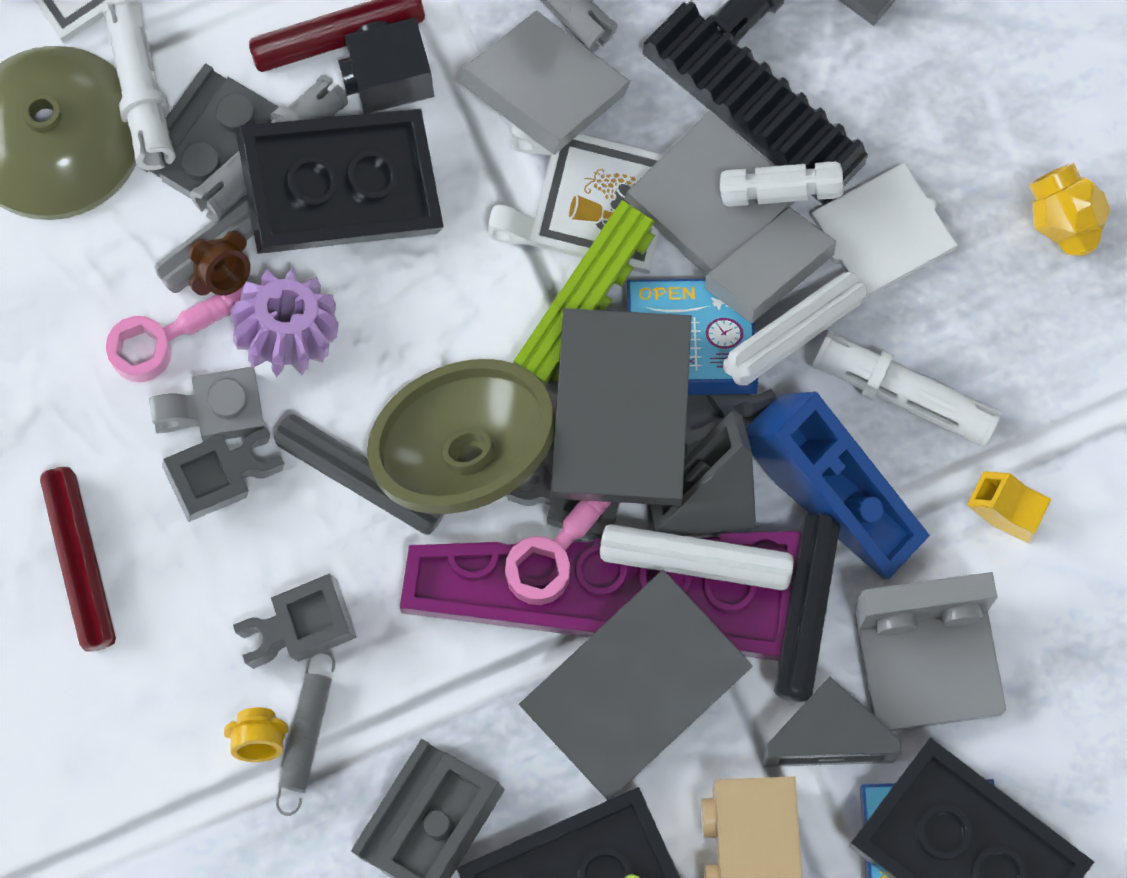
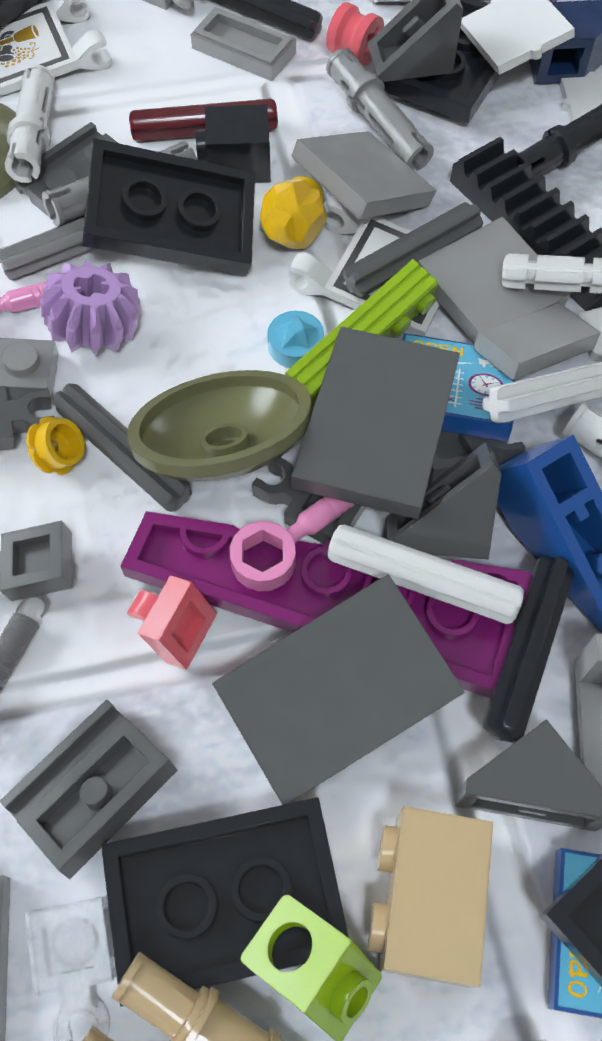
camera: 10 degrees right, 10 degrees down
(225, 276) = (38, 242): reddish brown plate -> none
(293, 489) = (55, 445): none -> yellow plate
(465, 651) = (173, 620): none -> coral tile
(475, 150) = (294, 212): none -> yellow rock
(511, 307) = (292, 336): none -> medium azure tile
(619, 173) = (384, 263): none -> dark grey axle

